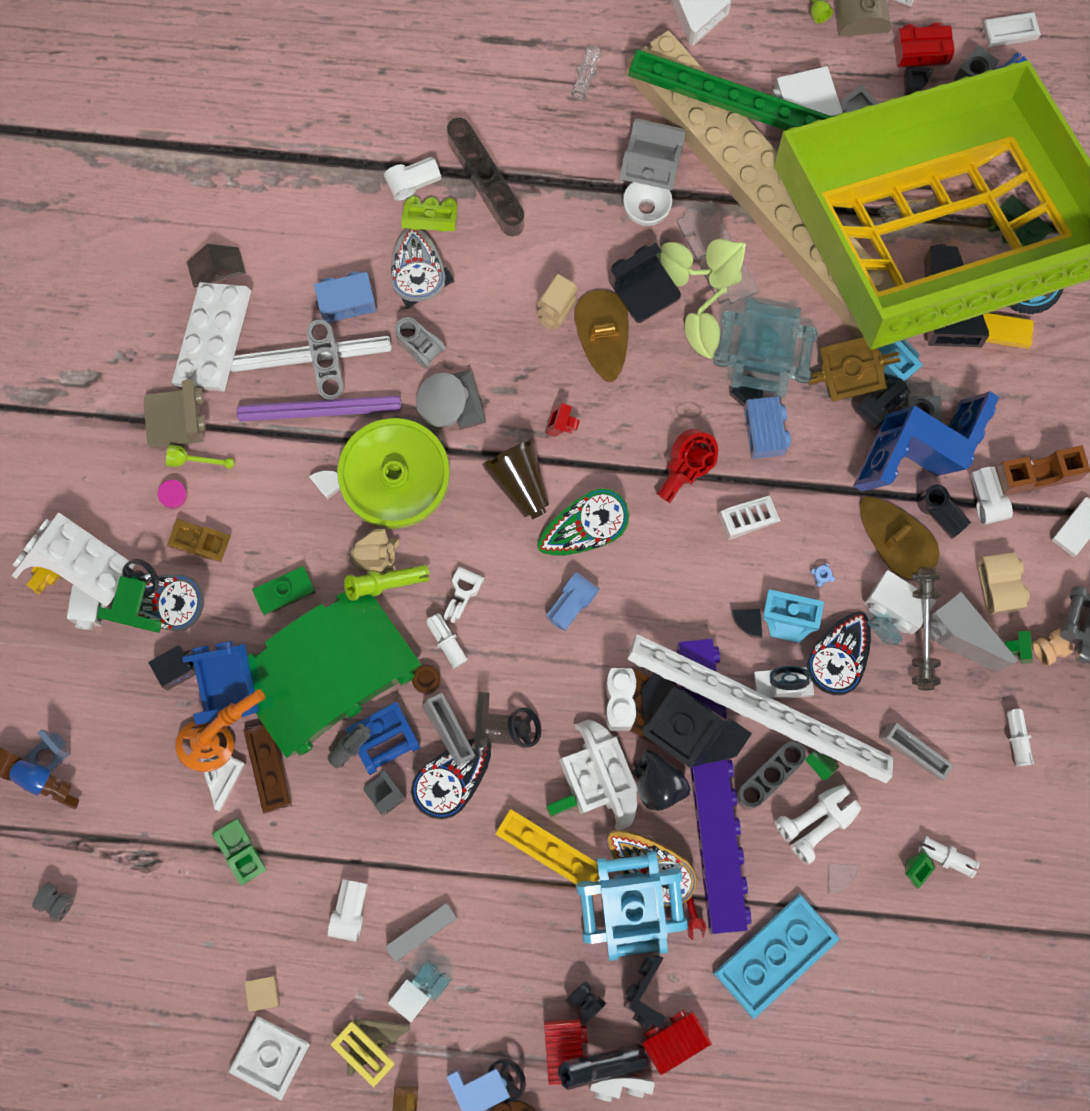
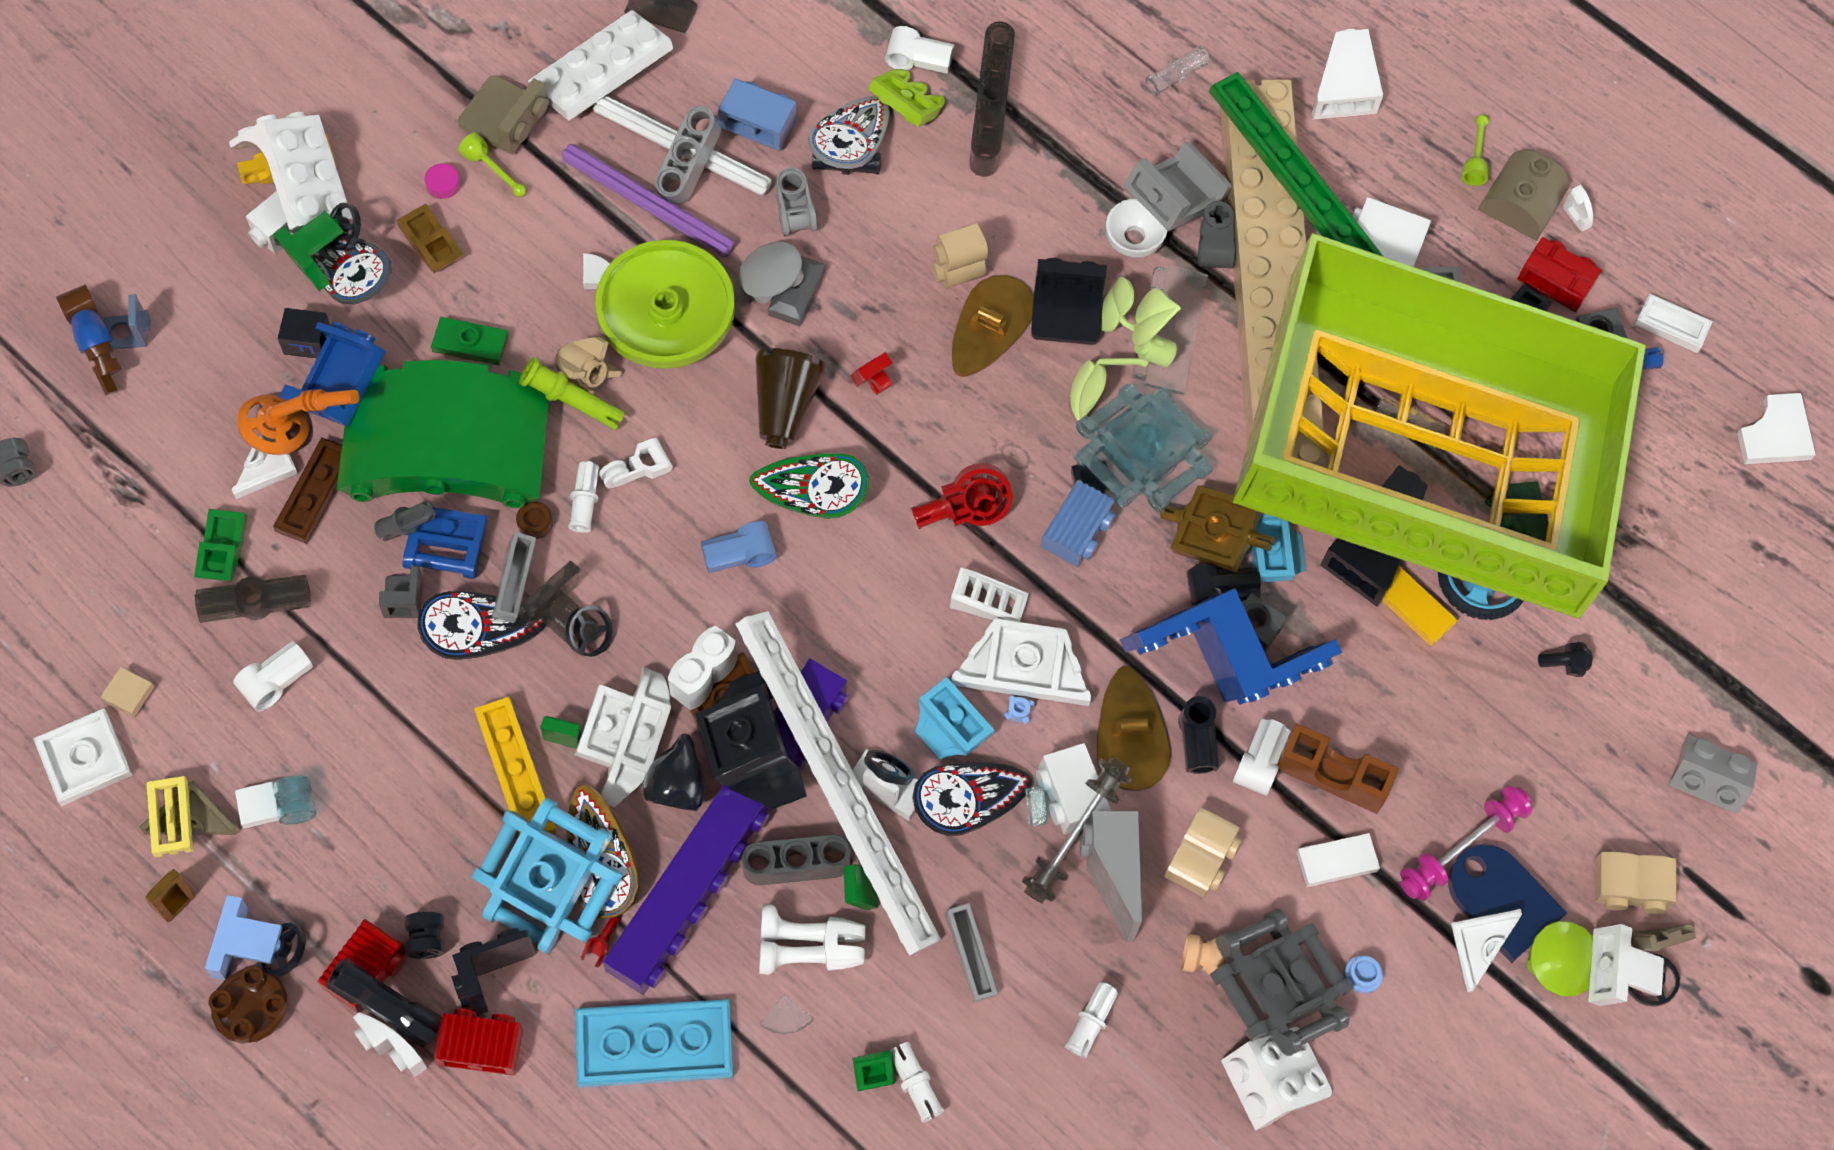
camera: 35 degrees right, 10 degrees down
(278, 885) = (230, 600): none -> clear smoke piece
(421, 932) = (322, 749): light grey piece -> none
(704, 175) = (1217, 240): none -> dark grey piece
(748, 621) = (903, 698): black tile -> none
(803, 543) = (1025, 663): none -> white wing
(1022, 647) = (1170, 930): green tile -> none

